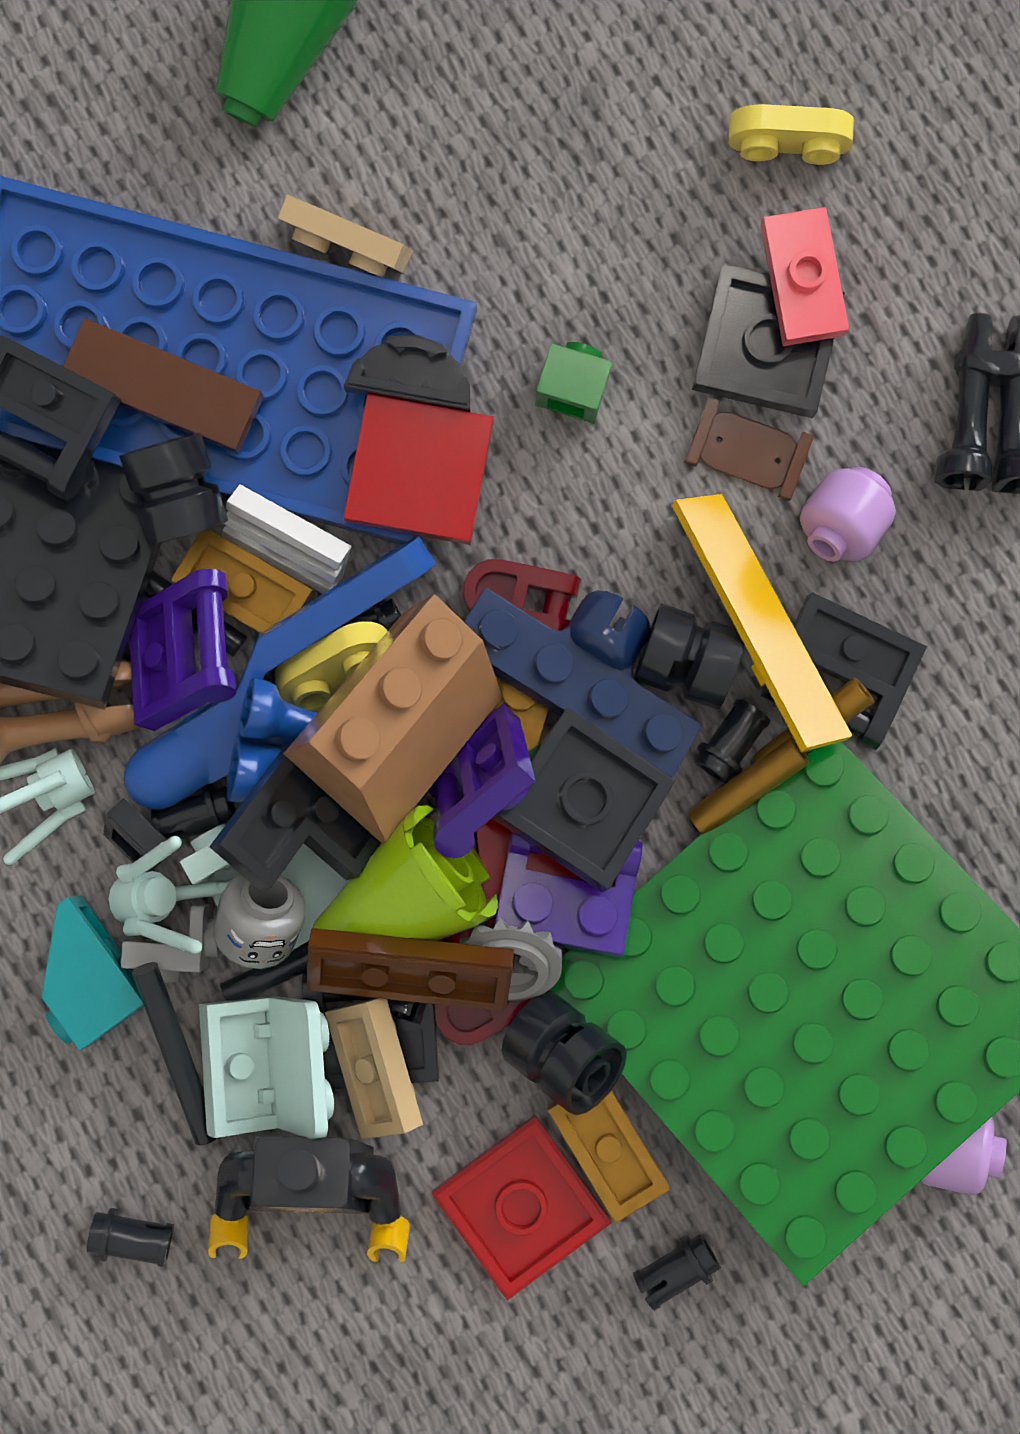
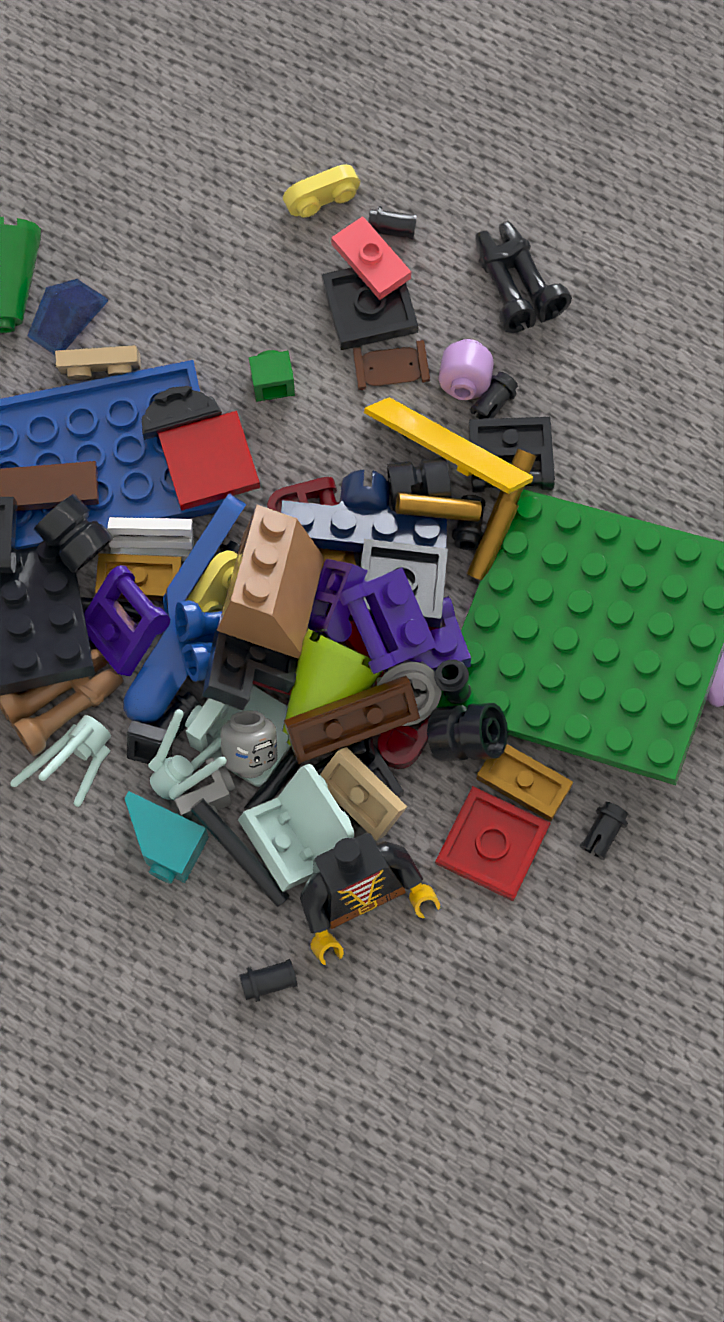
camera: 20 degrees left, 15 degrees down
(338, 137) = (64, 314): none -> clear blue slope
(543, 866) = (396, 616): none -> dark purple plate
(565, 970) = (453, 679): none -> black pin
(696, 709) = (438, 507): none -> pearl gold piece
(864, 233) = (392, 223): none -> black pin
(866, 575) = (493, 399): none -> black pin

